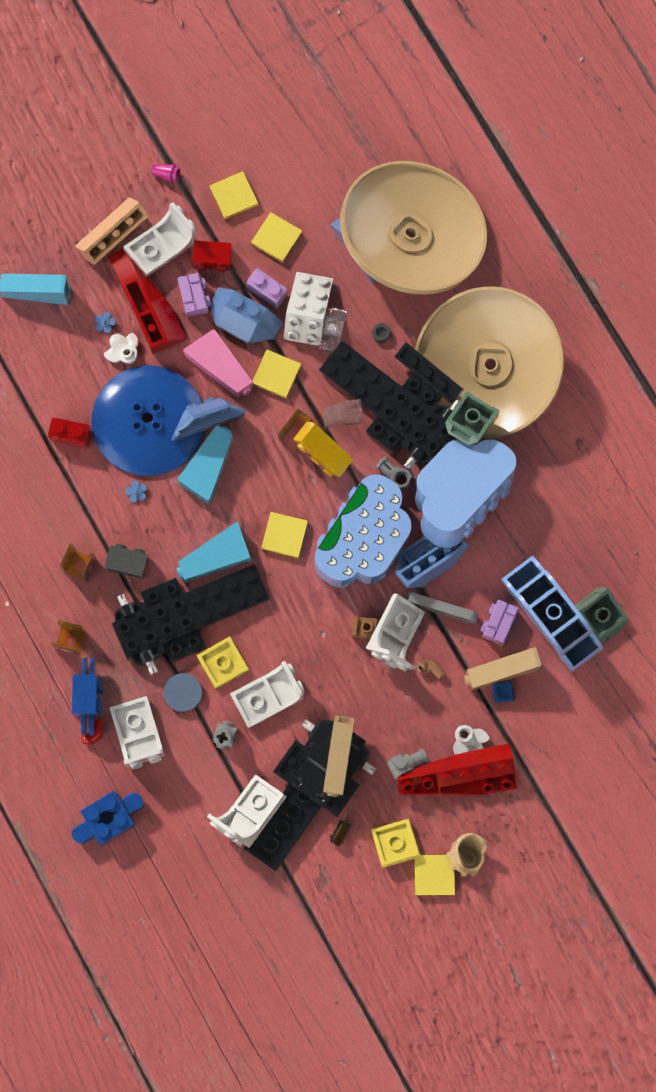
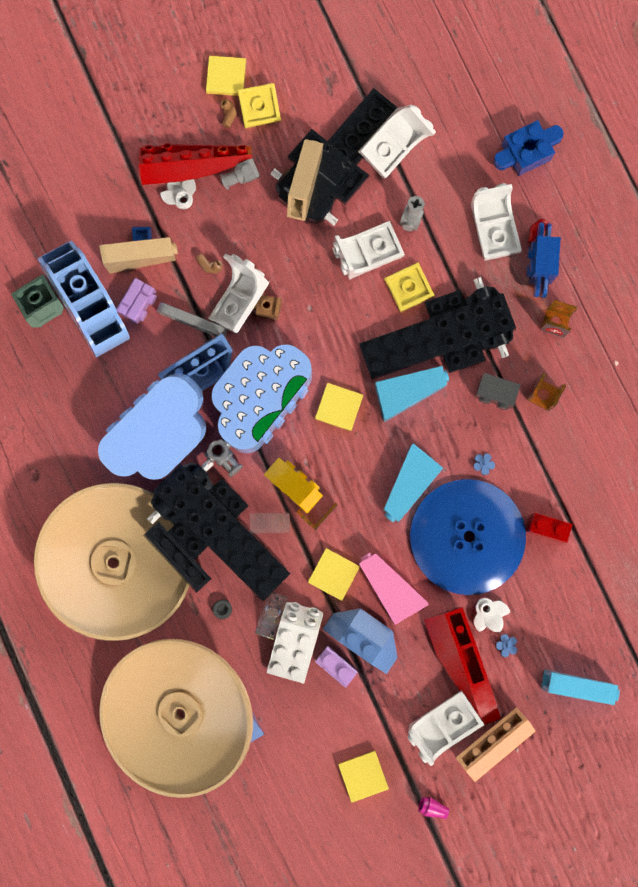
camera: 170 degrees left, 5 degrees up
(182, 692) = (449, 261): sand blue tile -> none
(193, 295) = (413, 666): lavender brick -> none
(206, 416) = (410, 531): medium blue wedge -> none
(212, 255) = (391, 708): red brick -> none
(276, 237) = (321, 724): light yellow tile -> none
(339, 833) = (310, 119): dark brown pin -> none
(425, 833) = (230, 113): none -> medium nougat arm
(467, 854) = (193, 87): tan hair -> none
(471, 419) = (138, 496): sand green slope -> none

